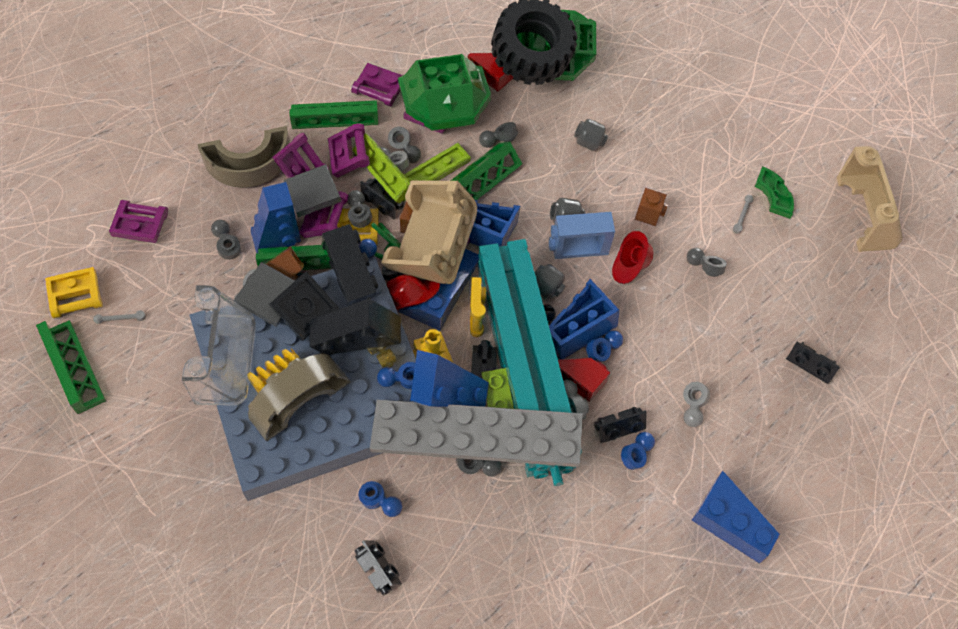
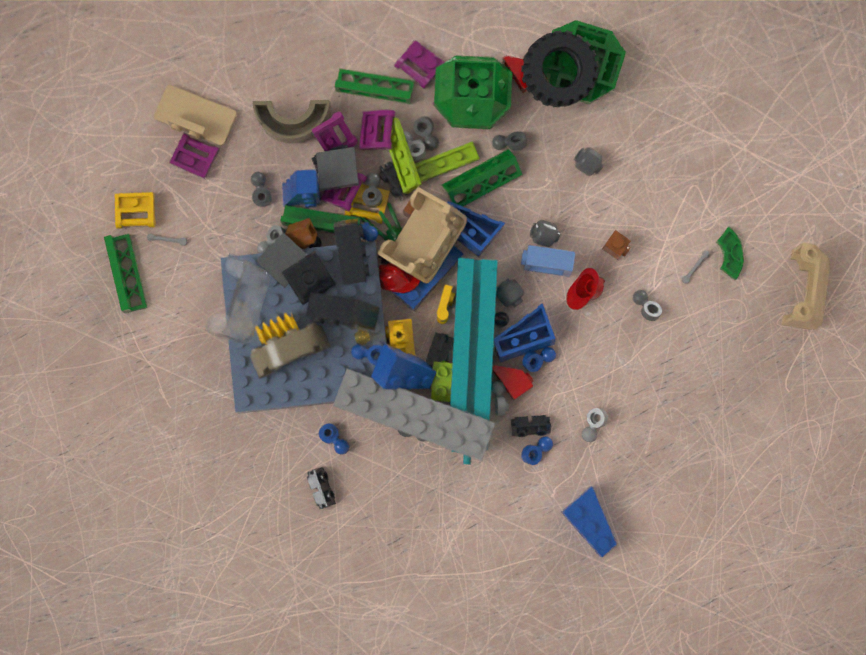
camera: 20 degrees right, 20 degrees up
(133, 180) = (195, 115): none -> tan bracket
(813, 363) = (706, 420): black hinge -> none

